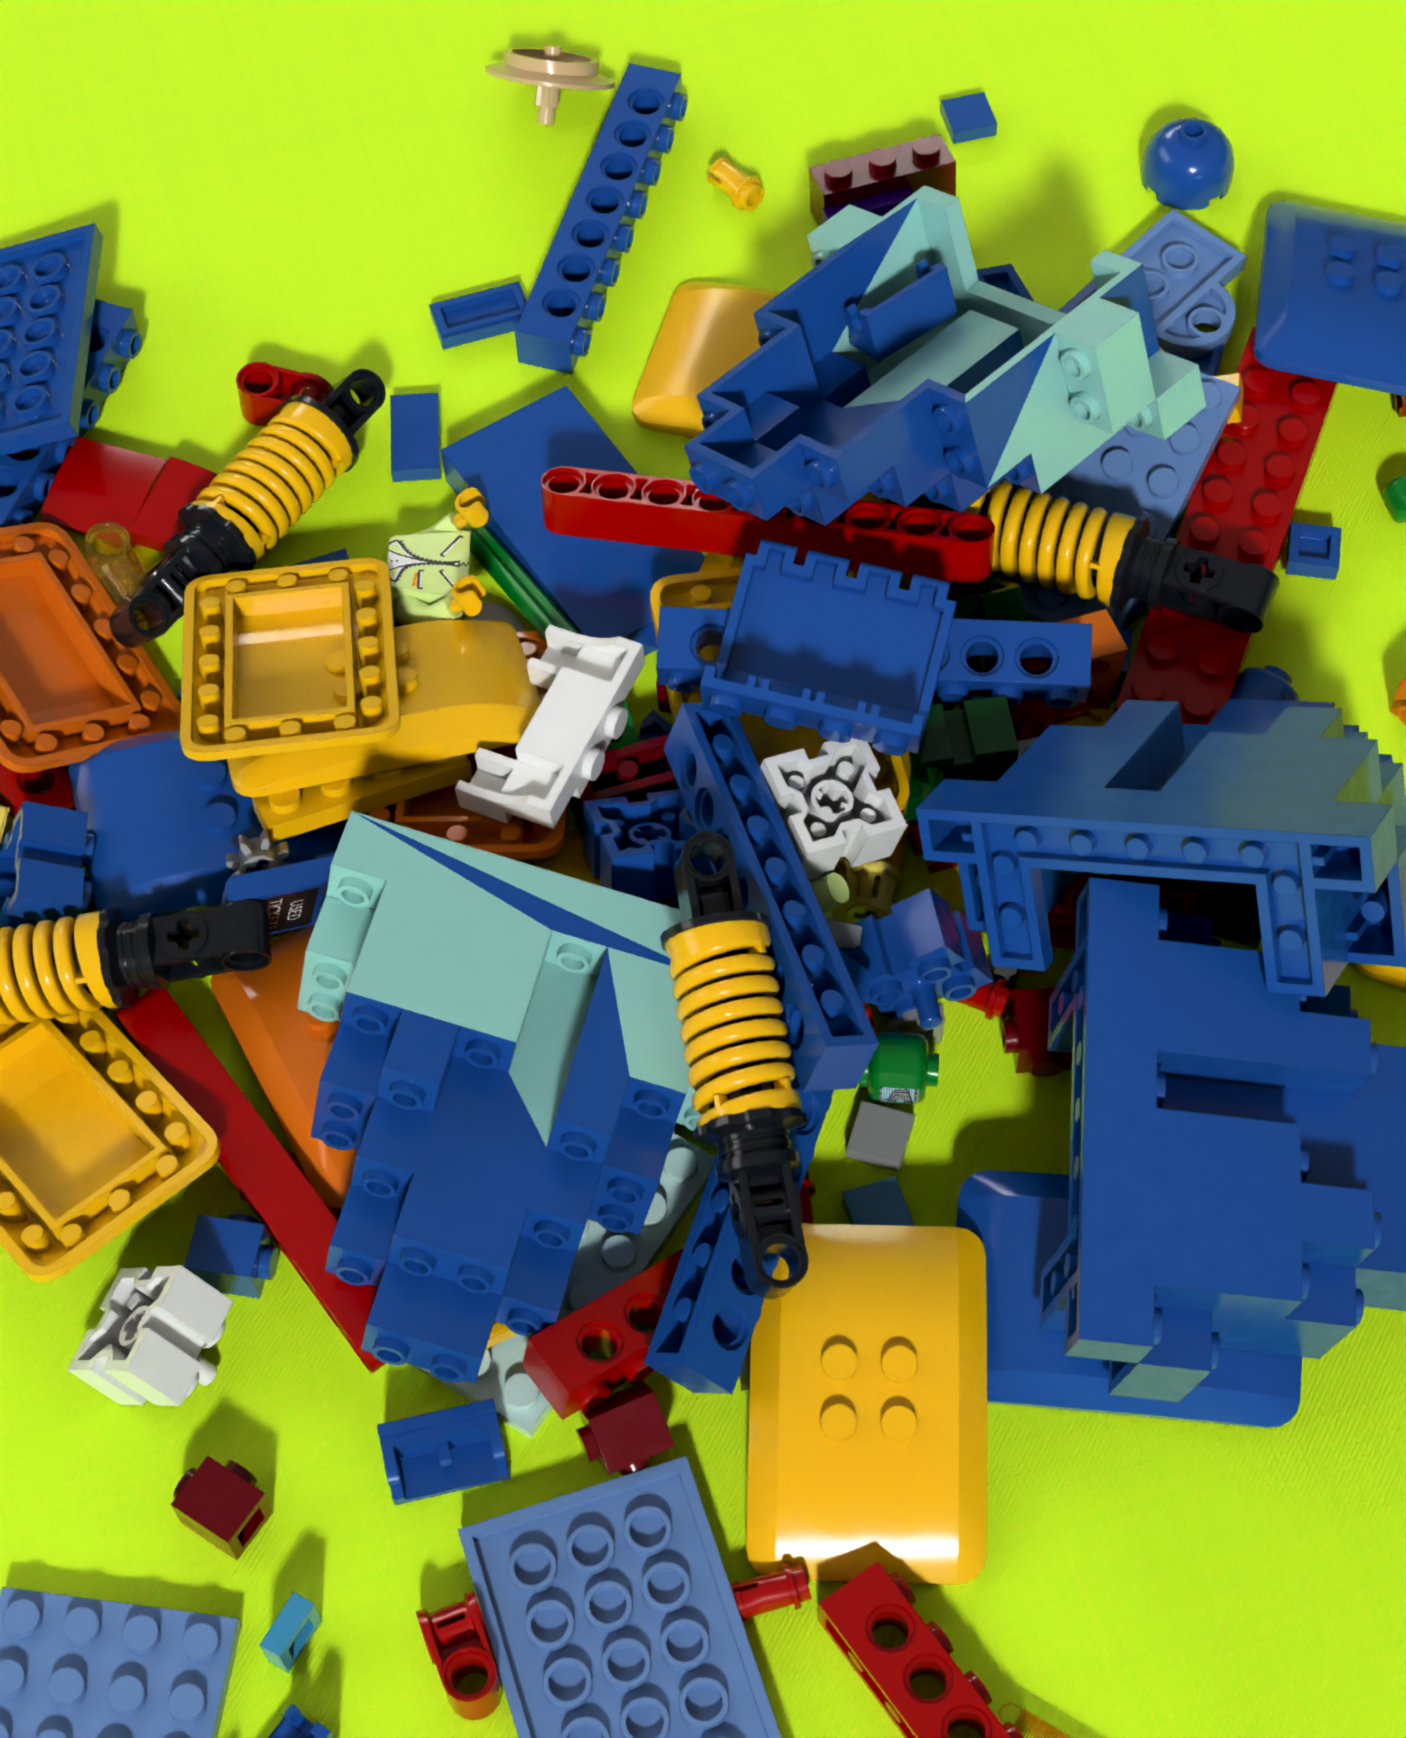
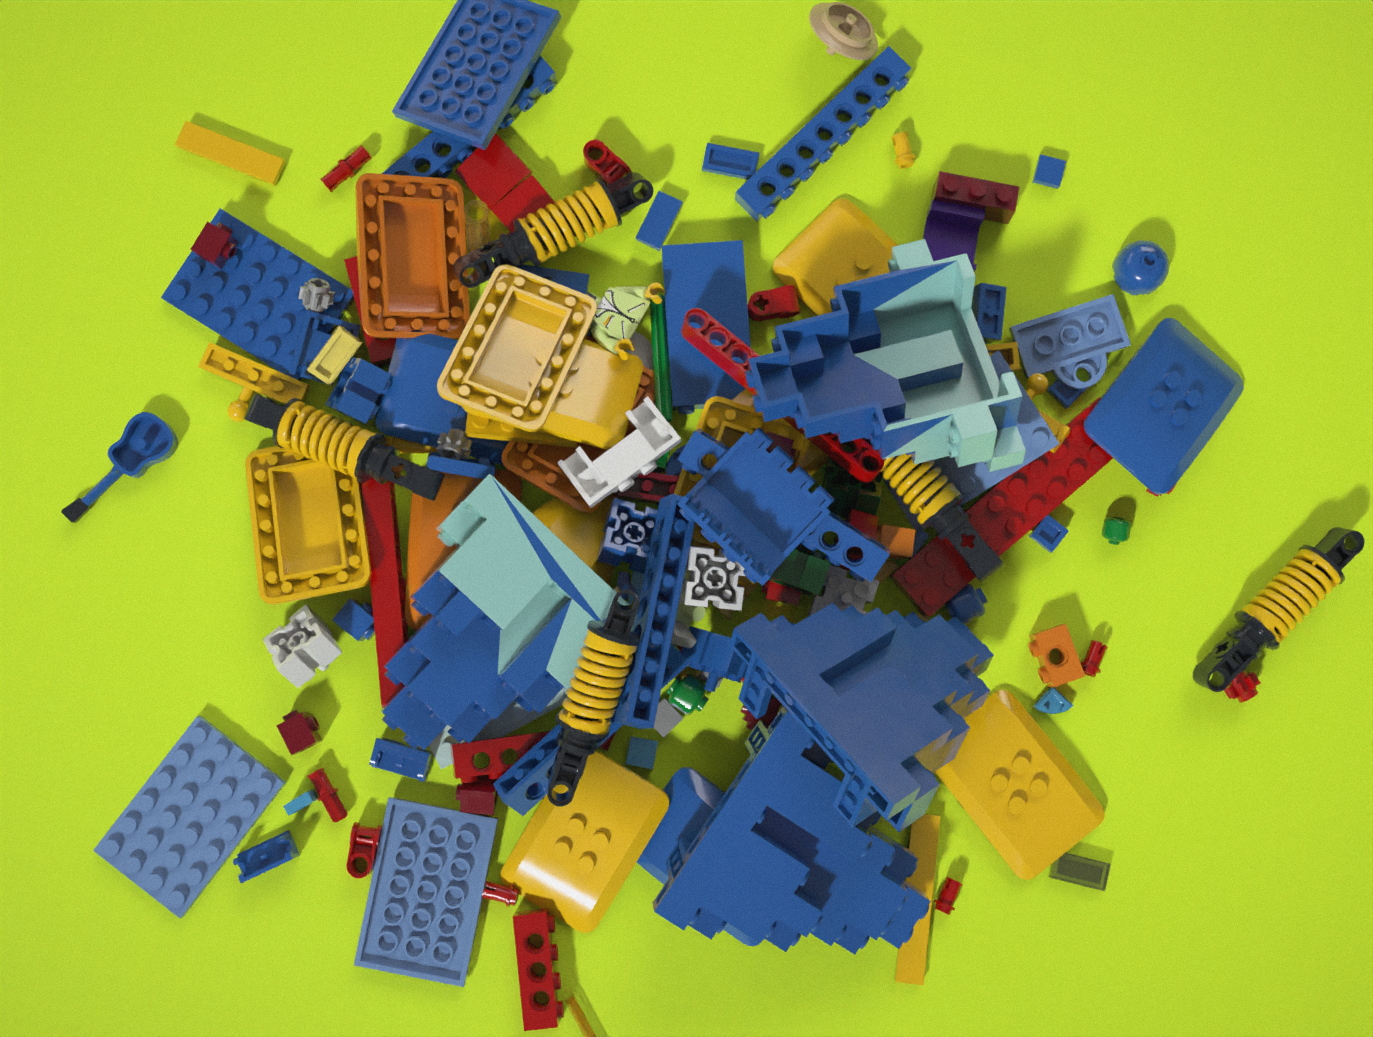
camera: 25 degrees right, 25 degrees up
(336, 1595) = (328, 795): none -> red axle
(664, 448) = (778, 303): none -> red piece
(904, 314) = (915, 316): blue hinge -> none

